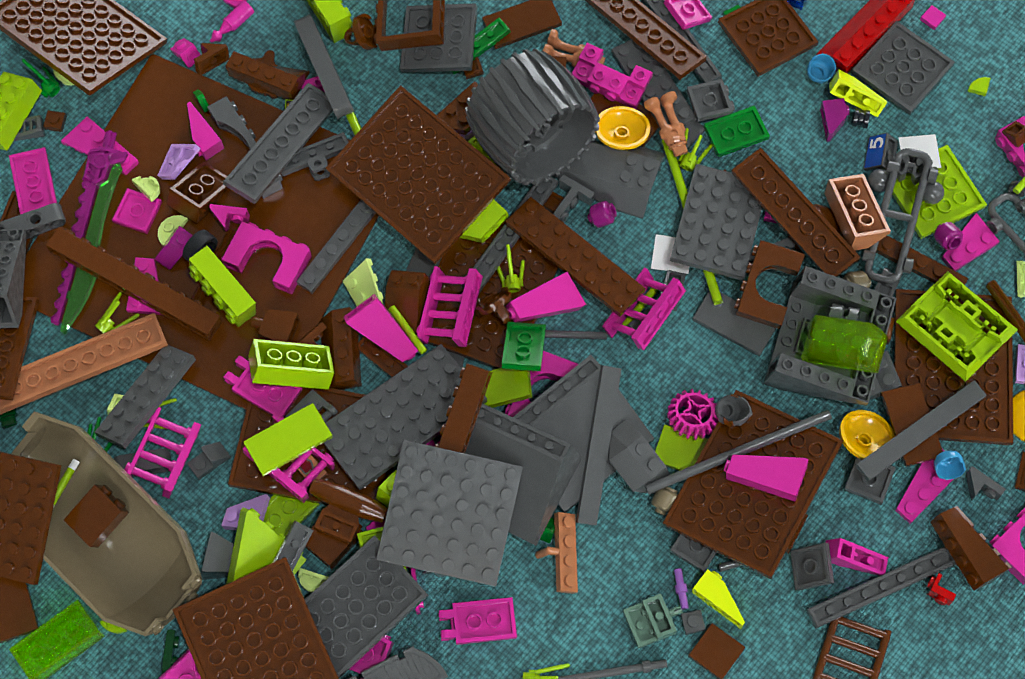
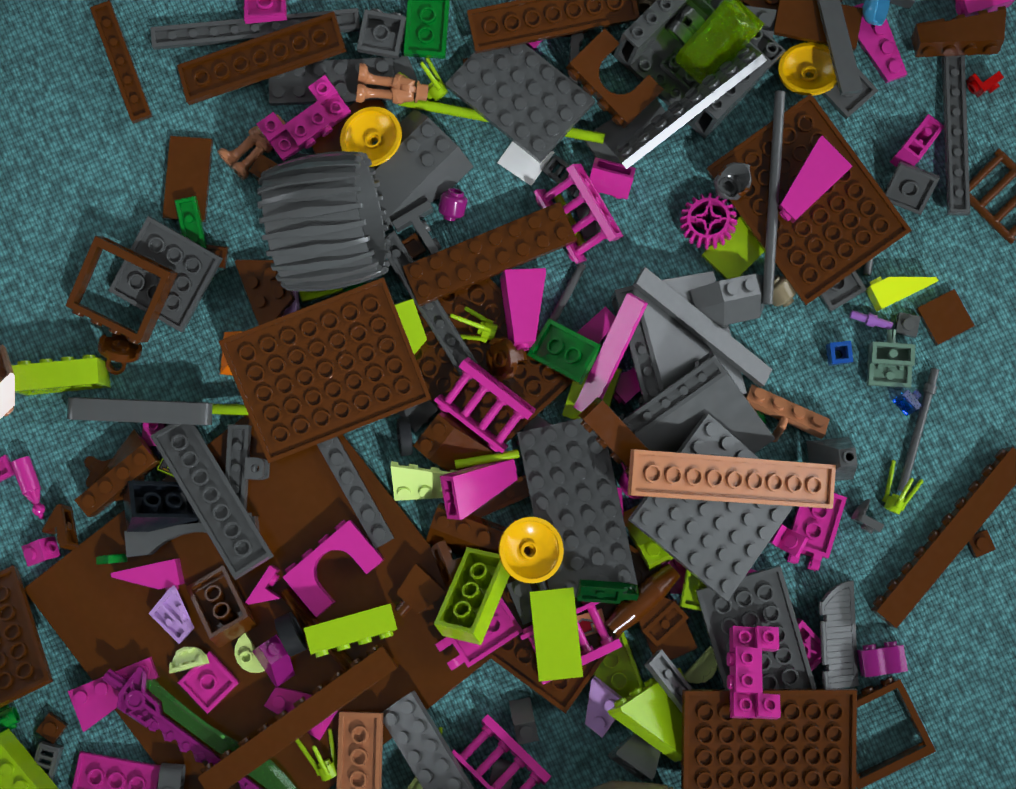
camera: 70 degrees left, 15 degrees up
(255, 107) = (155, 506): none -> black slope
(322, 600) = (746, 672): none -> dark pink bracket
(340, 463) = (606, 591): none -> dark green hinge
(347, 375) = (544, 546): none -> yellow dish
(396, 261) = (404, 436): none -> black tyre
(455, 598) = (788, 541): none -> dark pink slope
(477, 511) = (730, 479): none -> nougat plate
(502, 664) = (868, 524): none -> dark grey plate
(536, 616) = (834, 452): none -> dark grey slope
(540, 377) = (612, 351): none -> dark pink tile
(626, 651) = (908, 401): none -> clear blue tile
(637, 566) = (844, 348): none -> blue plate
(688, 322) = (612, 178): none -> dark pink piece
(781, 347) = (693, 103): none -> dark grey plate

